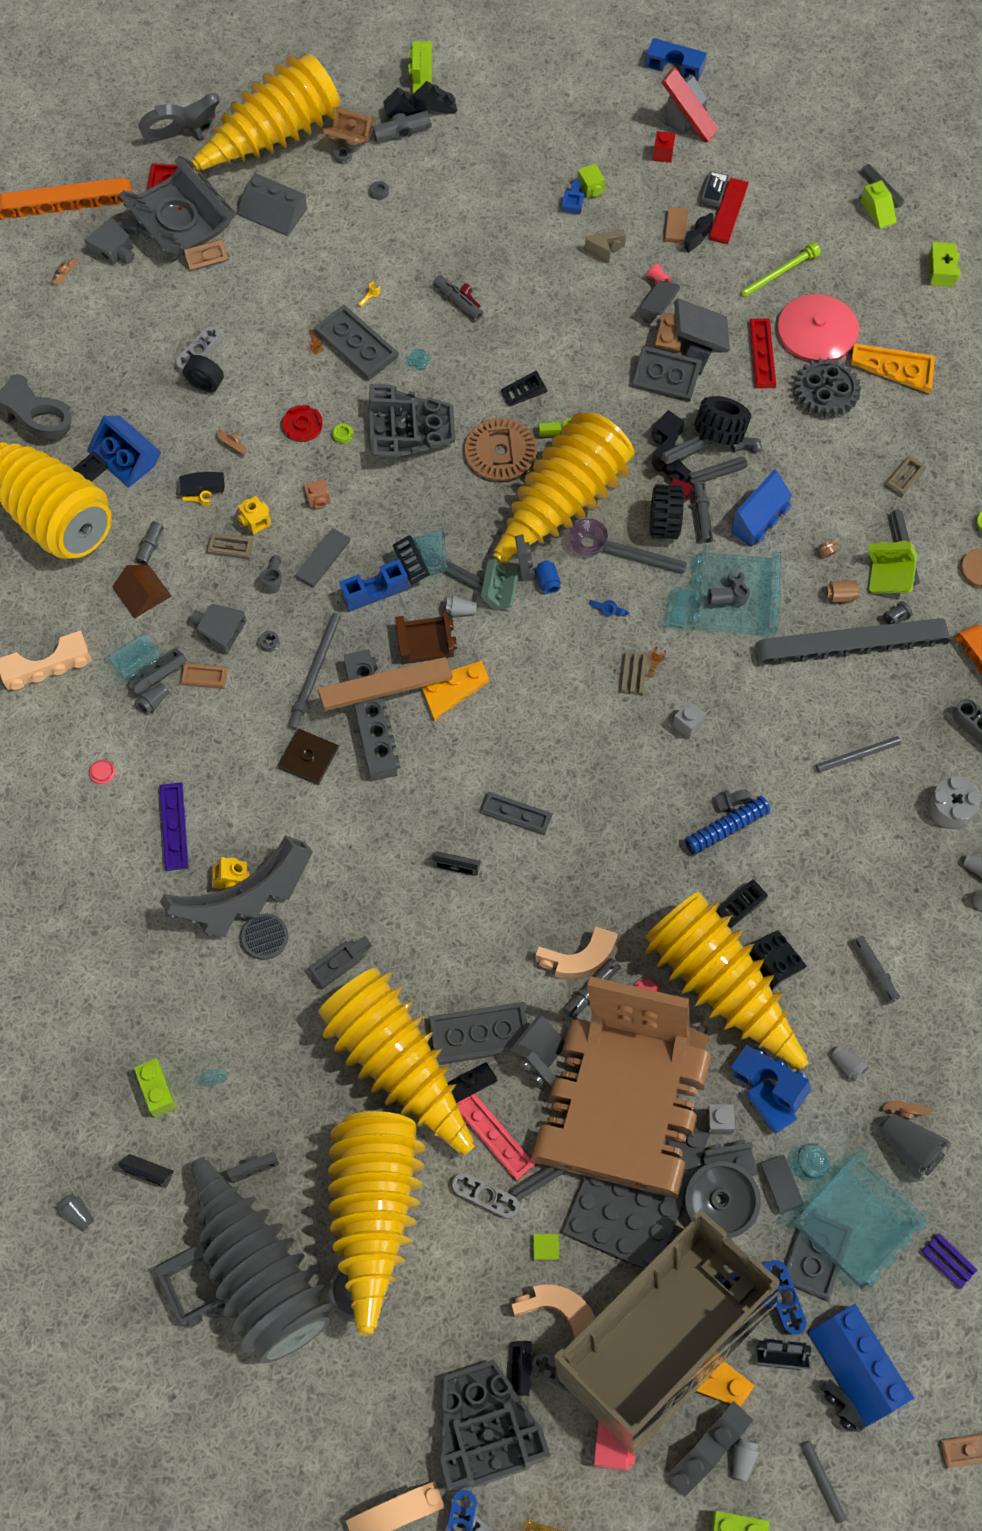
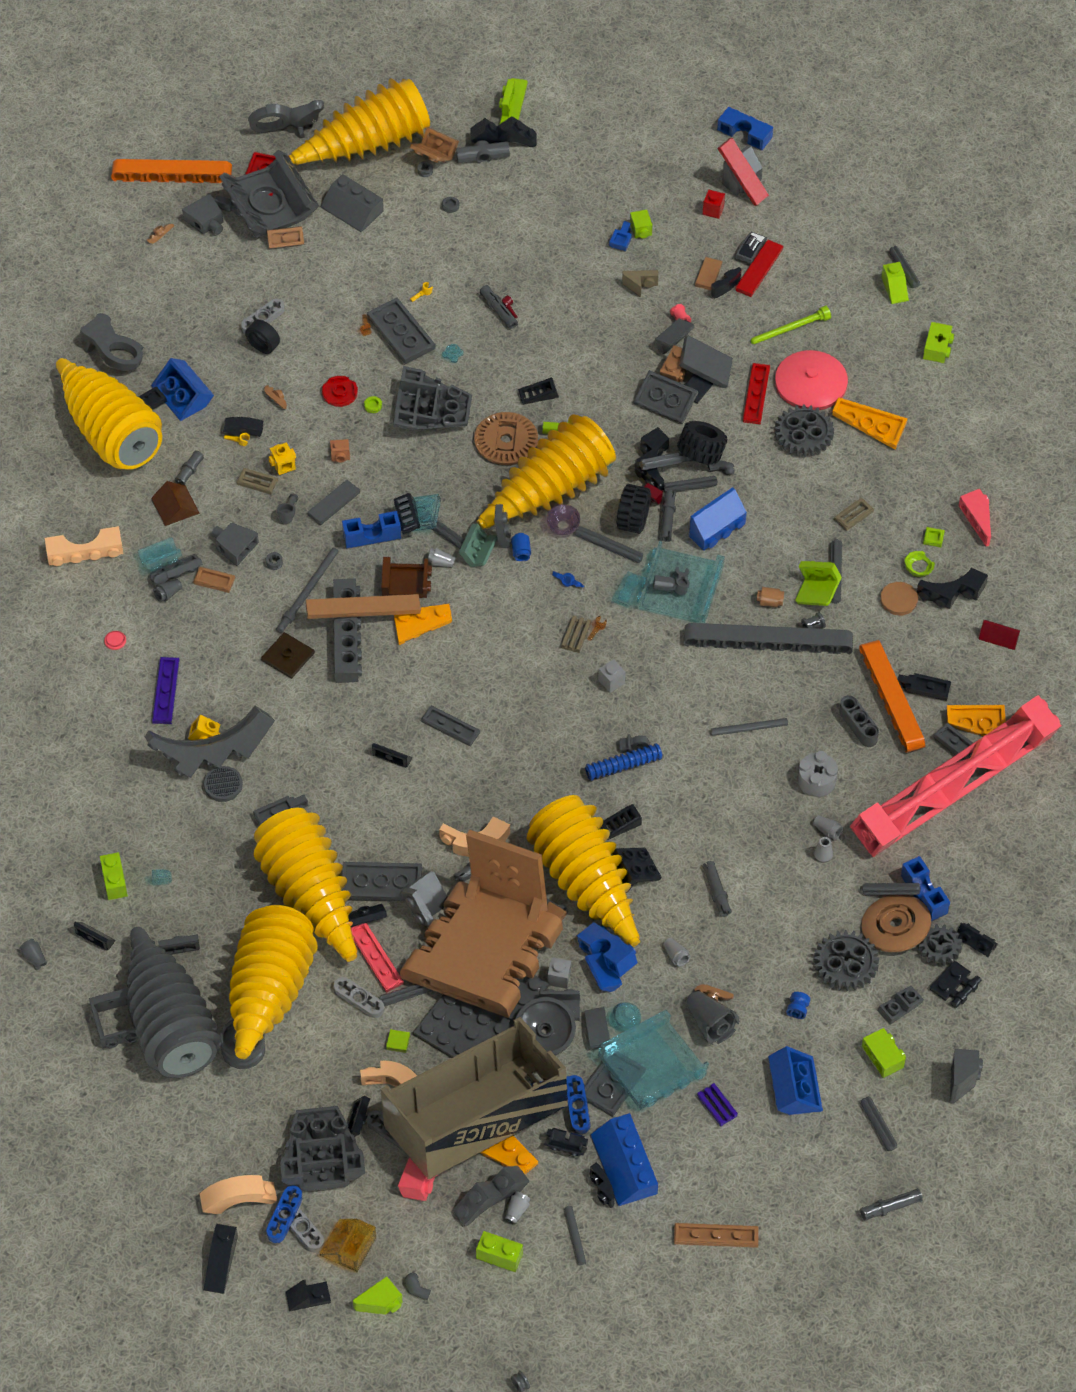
camera: 10 degrees right, 10 degrees down
(827, 548) = (767, 561): medium nougat plate -> none

